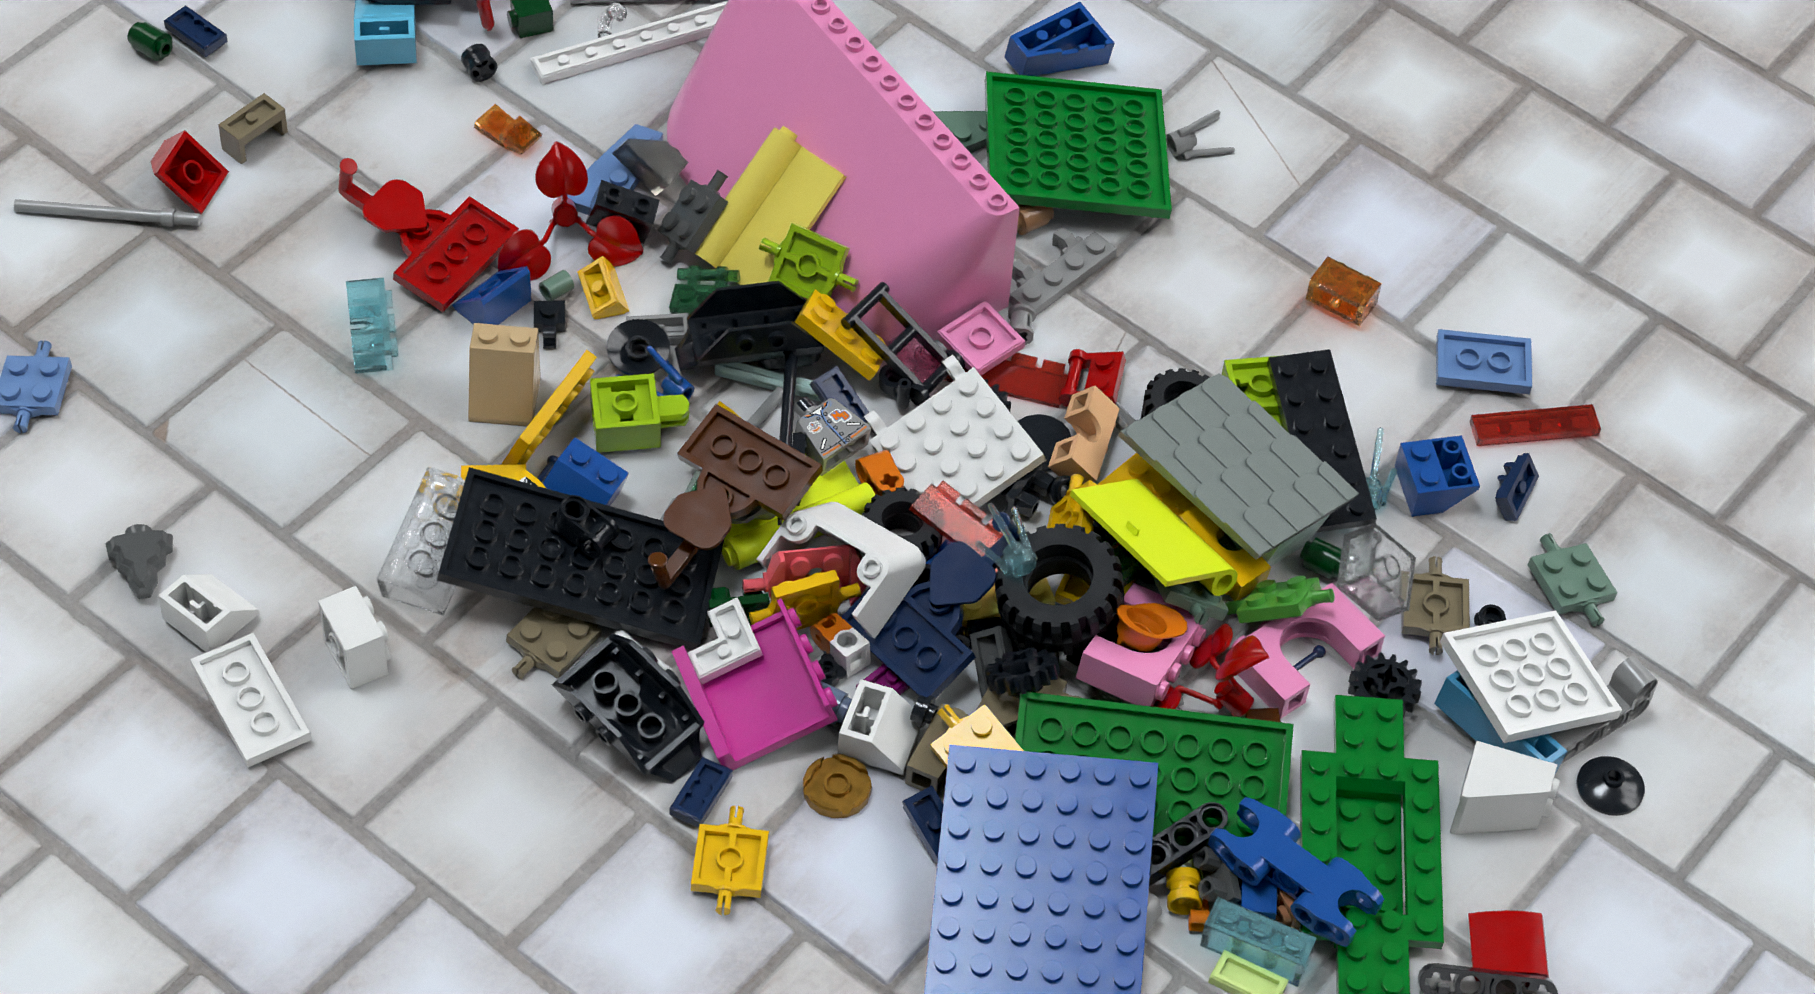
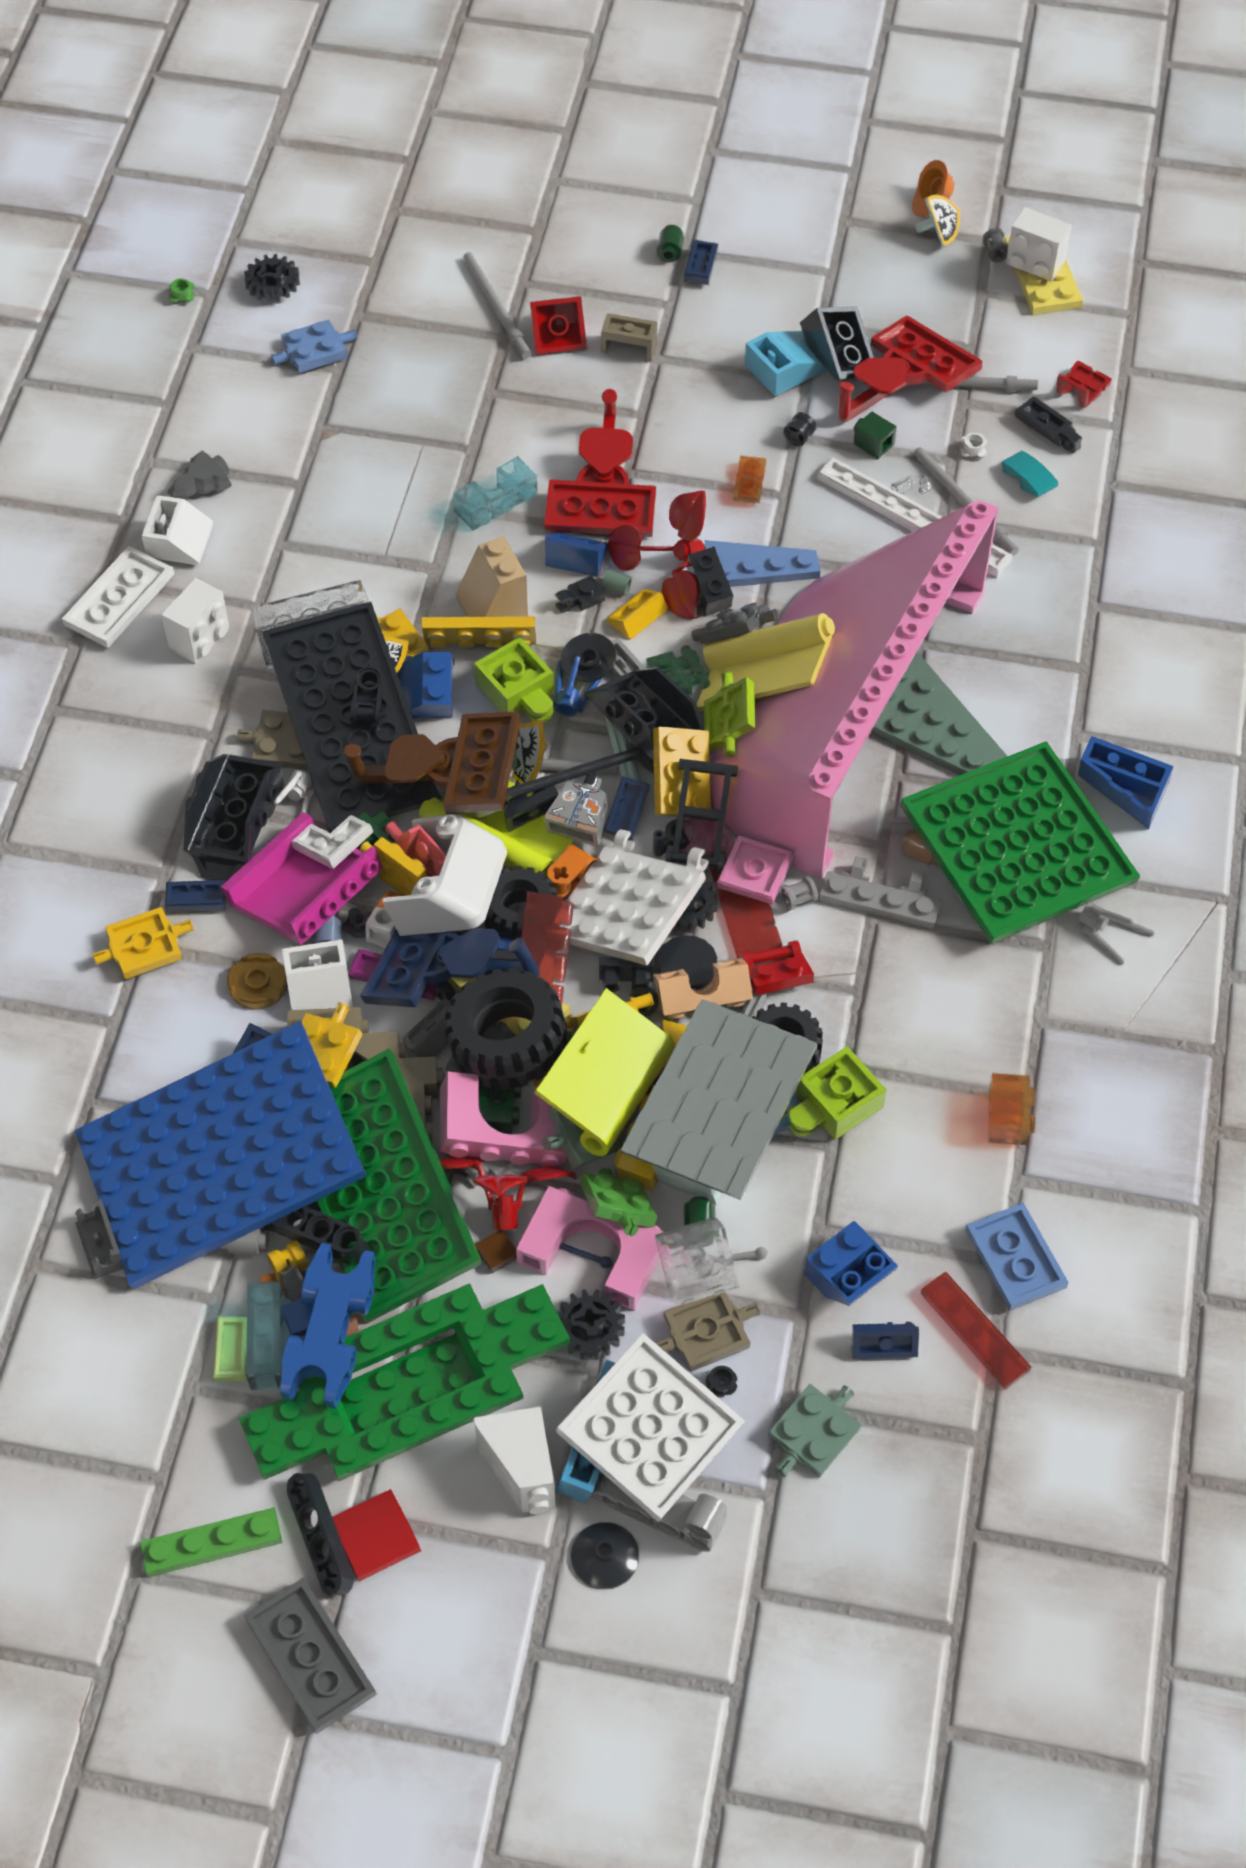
camera: 65 degrees right, 5 degrees up
(651, 162) = (776, 576): clear smoke slope -> none
(924, 710) = (347, 995): black plate -> none
(1017, 558) = (495, 973): clear light blue plant -> none
(1022, 671) = (412, 1042): black gear -> none
(1147, 624) = (515, 1108): orange piece -> none
(1317, 415) = (813, 1155): black plate -> none
(1377, 491) = (799, 1224): clear light blue plant -> none

